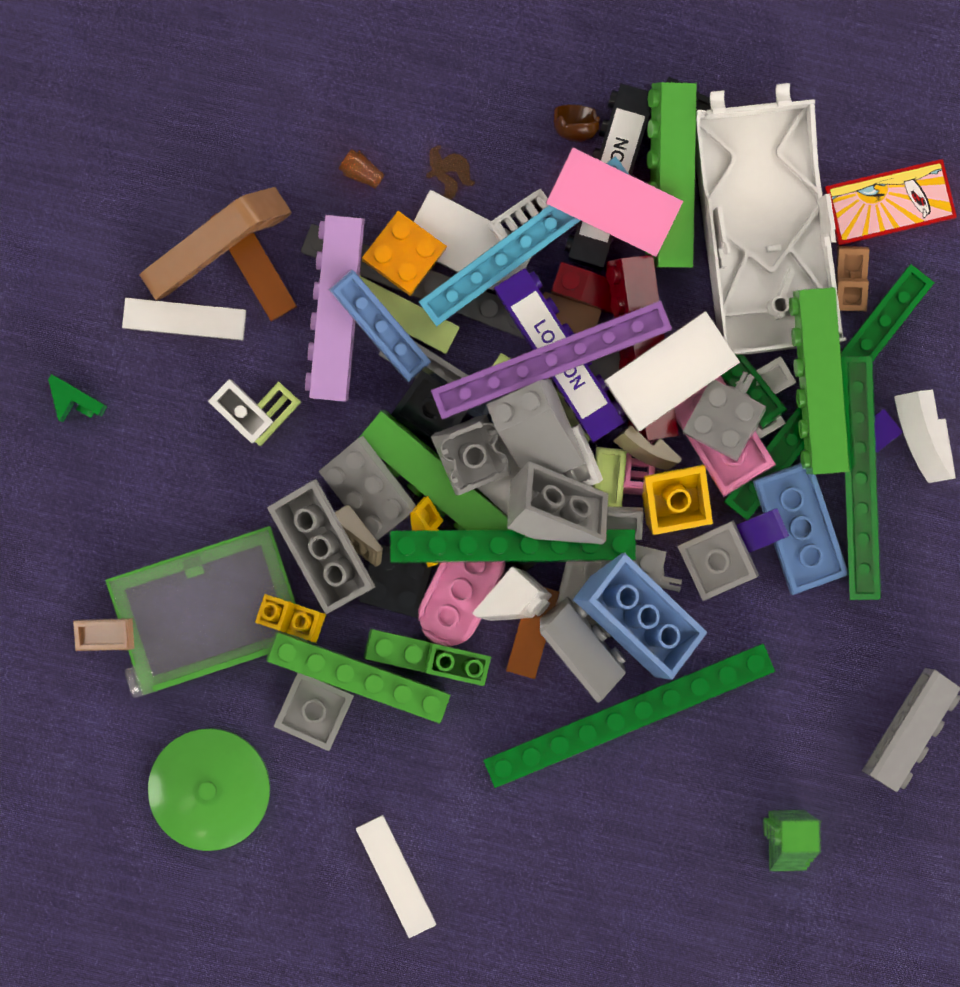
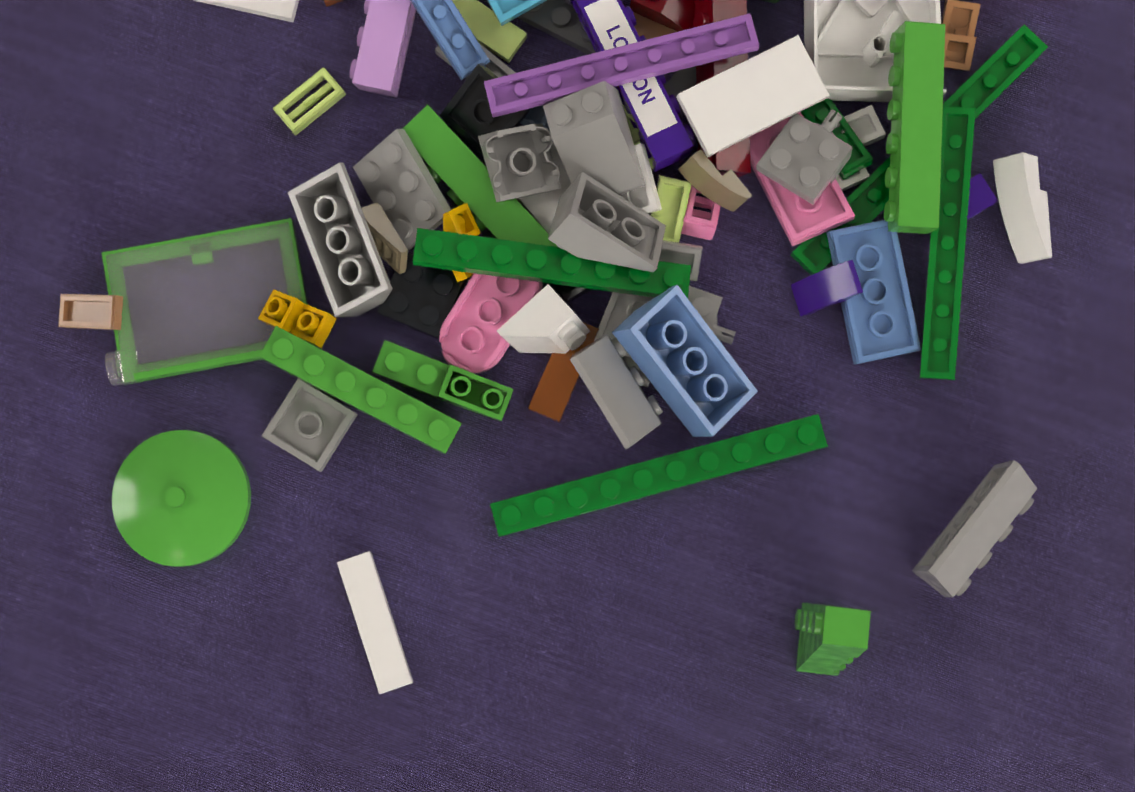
camera: 10 degrees right, 5 degrees down
(66, 395) = (94, 56): green slope -> none
(240, 411) = (274, 85): white slope -> none
(676, 500) = (741, 238): yellow slope -> none
(718, 560) = (778, 315): light grey plate -> none

